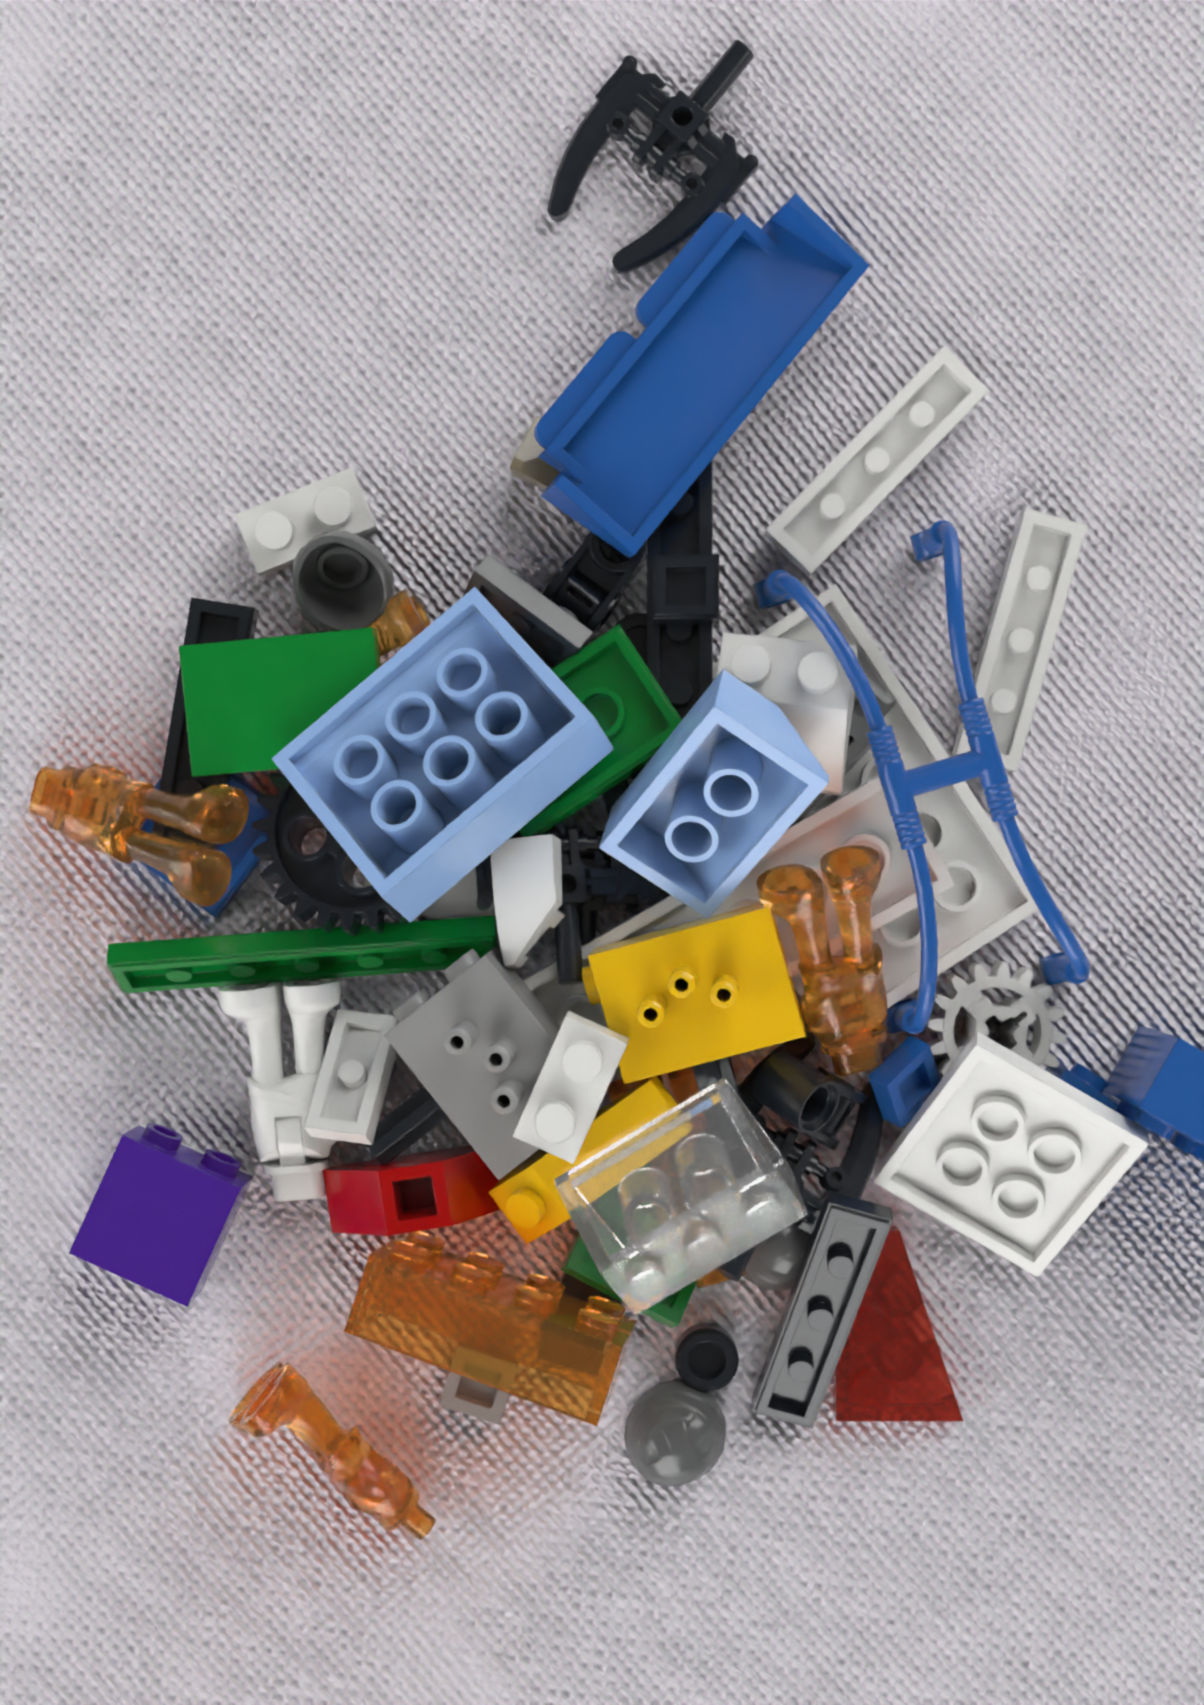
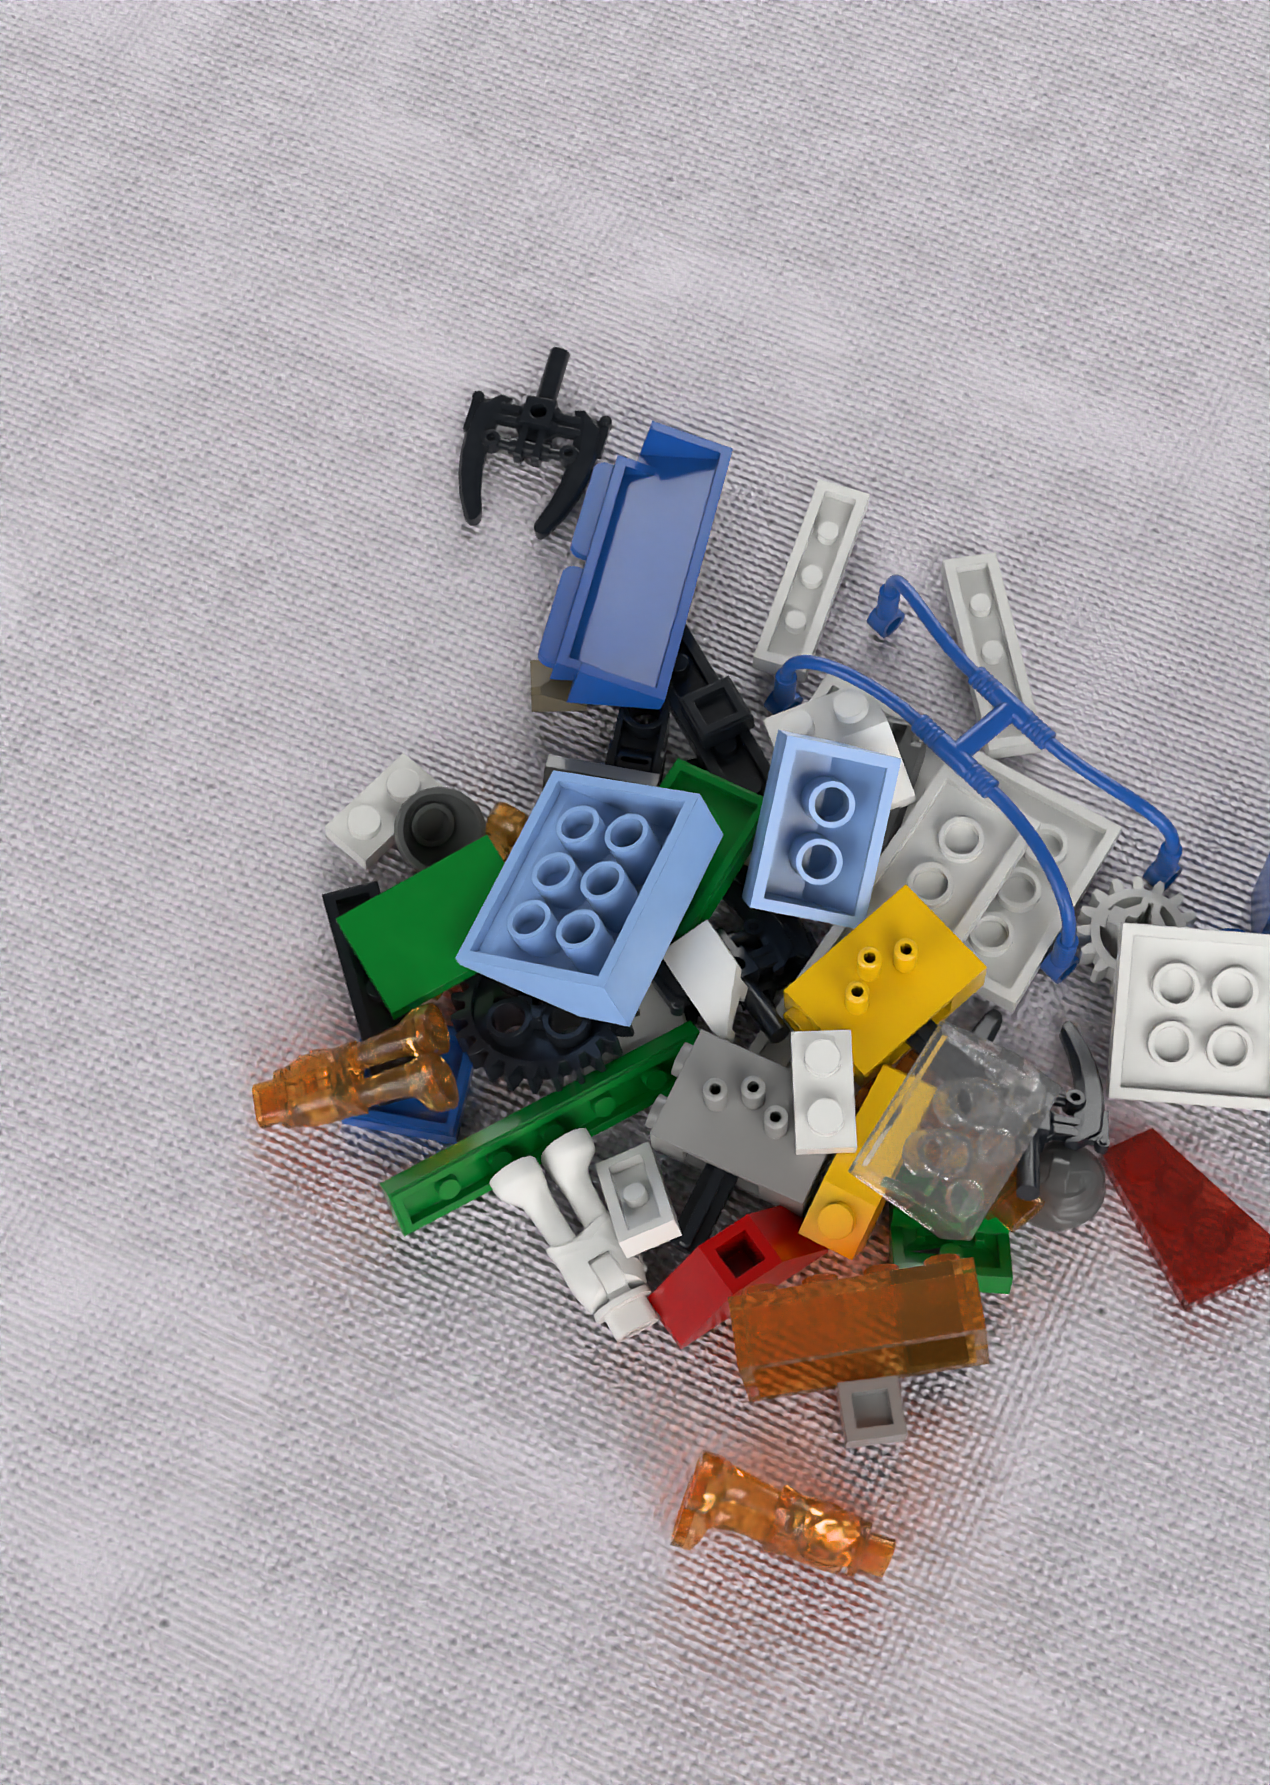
camera: 20 degrees left, 25 degrees down
(162, 1212) = (528, 1390): dark purple piece -> none
(675, 1433) = (1061, 1383): dark grey piece -> none
(706, 1357) = (1052, 1309): black tile -> none
(806, 1096) = (1025, 1034): black piece -> none
(821, 1308) = (1122, 1207): tile -> none
(842, 993) = (1001, 935): clear orange piece -> none
(904, 1081) = (1087, 1005): blue plate -> none

